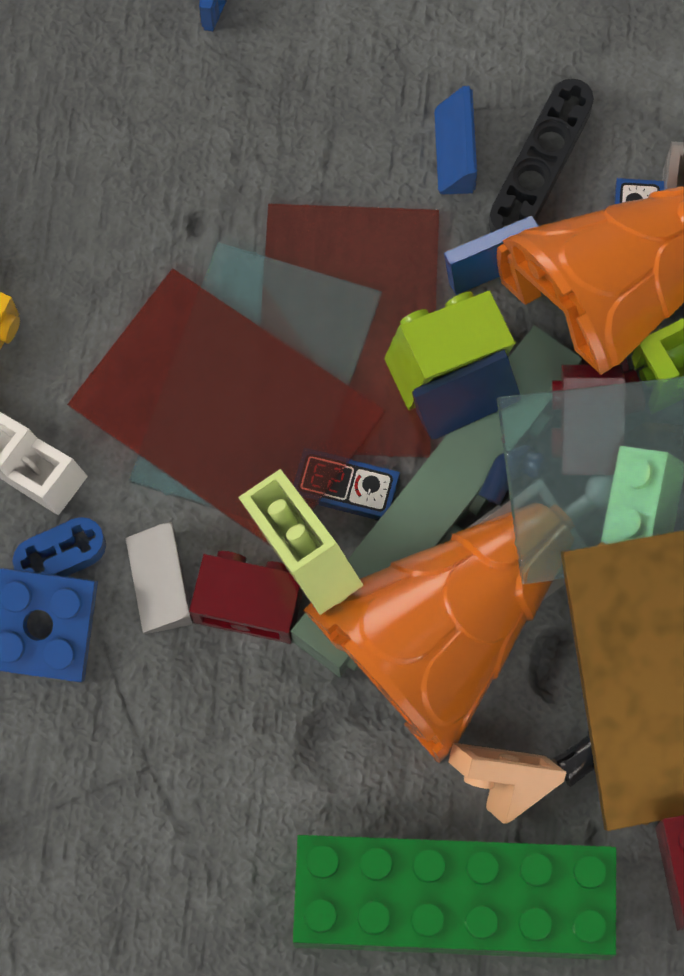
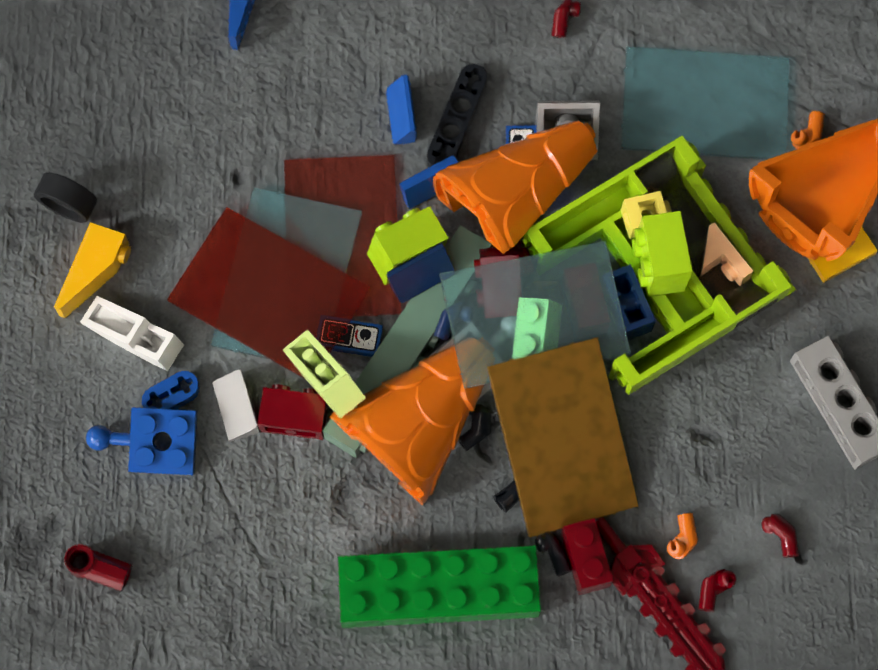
camera: 10 degrees left, 0 degrees up
(513, 777) = (469, 510): light nougat slope -> none
(539, 649) = (479, 427): none -> black arm
(648, 862) = (556, 552): none -> black arm

